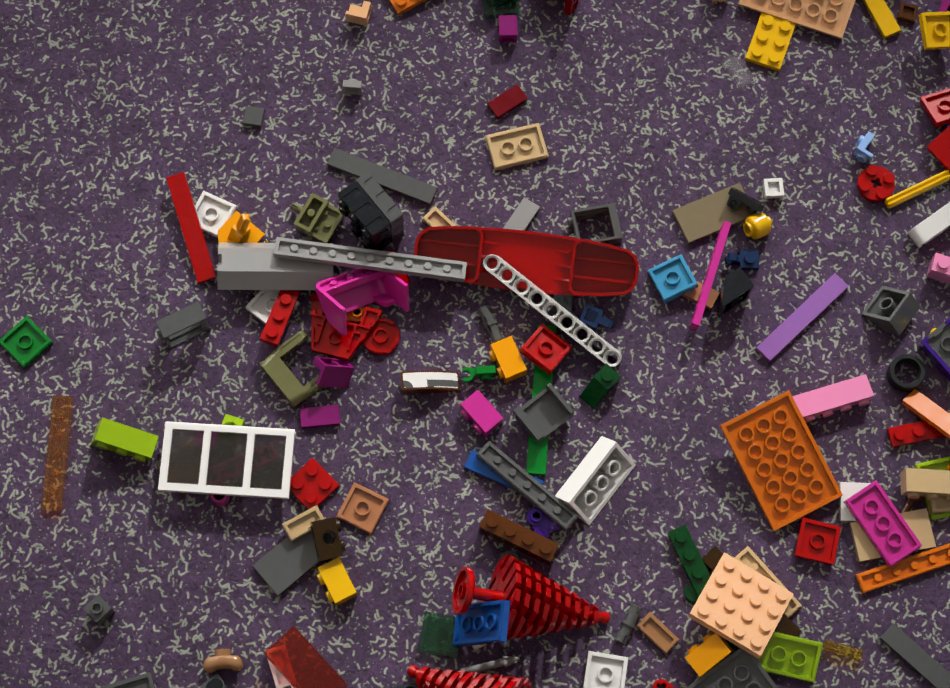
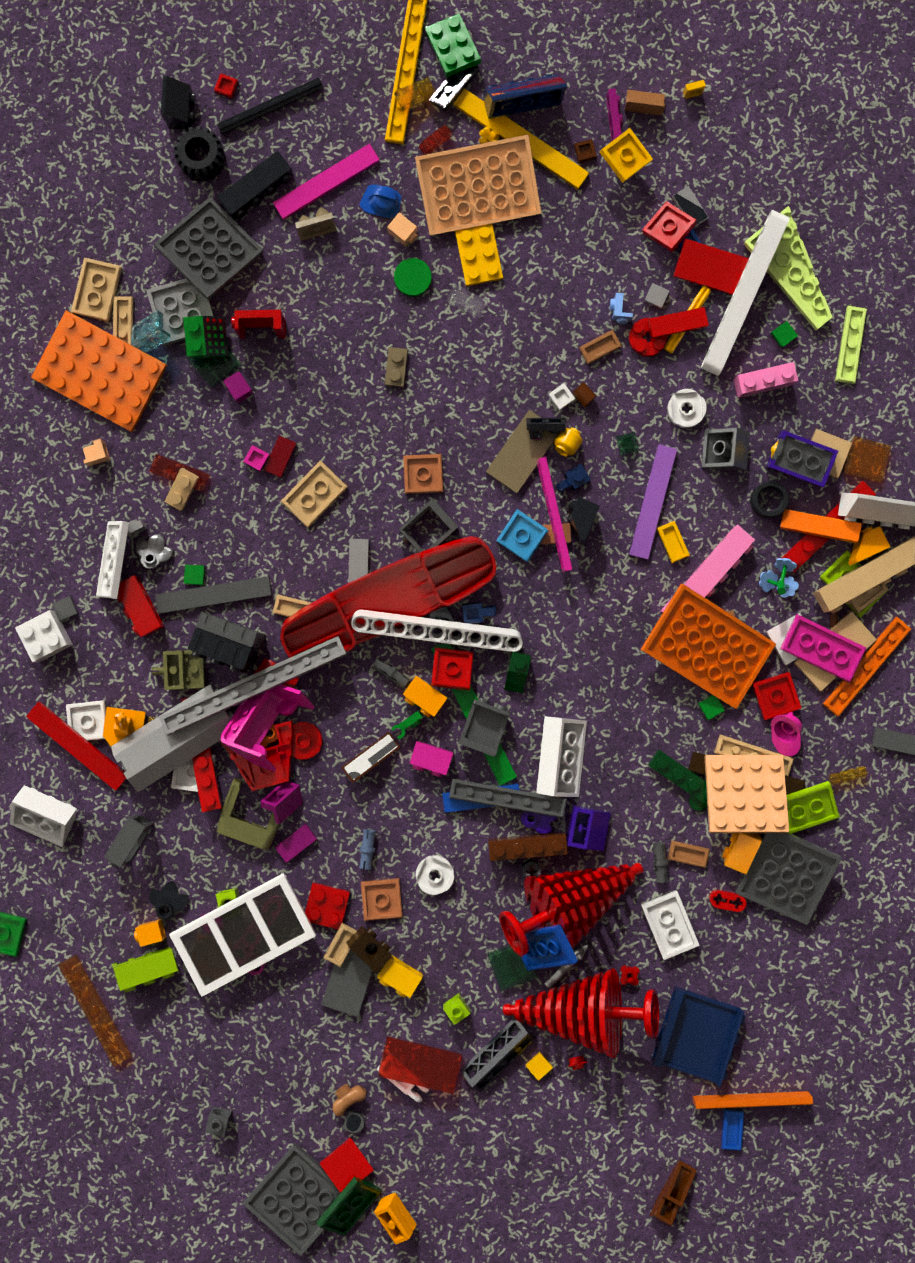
camera: 25 degrees left, 15 degrees up
(124, 266) = (42, 815): none -> white slope
(148, 414) = (150, 933): none -> light orange brick
(182, 396) = (168, 897): none -> black plate
(222, 126) = (43, 636): none -> white brick
(314, 148) = (139, 607): none -> red brick
(318, 99) = (112, 559): none -> white tile
(357, 112) = (153, 548): none -> flat silver plate
(369, 640) = (456, 1008): none -> lime brick
(376, 151) = (194, 574): none -> green tile
(377, 457) = (367, 849): none -> sand blue pin
(410, 79) = (181, 489): none -> tan plate
(416, 67) = (169, 469): none -> clear red tile
(421, 525) = (440, 884): none -> white plate
(487, 91) = (256, 458): none -> dark pink plate
(581, 553) = (588, 828): none -> dark purple slope
(618, 183) = (423, 474): none -> nougat tile
(647, 88) = (396, 367): none -> dark tan plate
(704, 28) = (412, 277): none -> green tile
(753, 517) = (711, 707): none -> green tile
(793, 197) = (584, 394): none -> reddish brown beam
(800, 360) = (673, 542): none -> yellow tile
(807, 577) = (786, 734): none -> dark pink piece
(808, 257) = (627, 443): none -> clear green tile
(830, 169) = (600, 347): none -> medium nougat tile
(879, 453) = (785, 586): none -> light blue plant
(886, 255) = (694, 416): none -> white plate
(902, 156) = (656, 296): none -> light grey tile
(908, 184) = (678, 322): none -> red tile

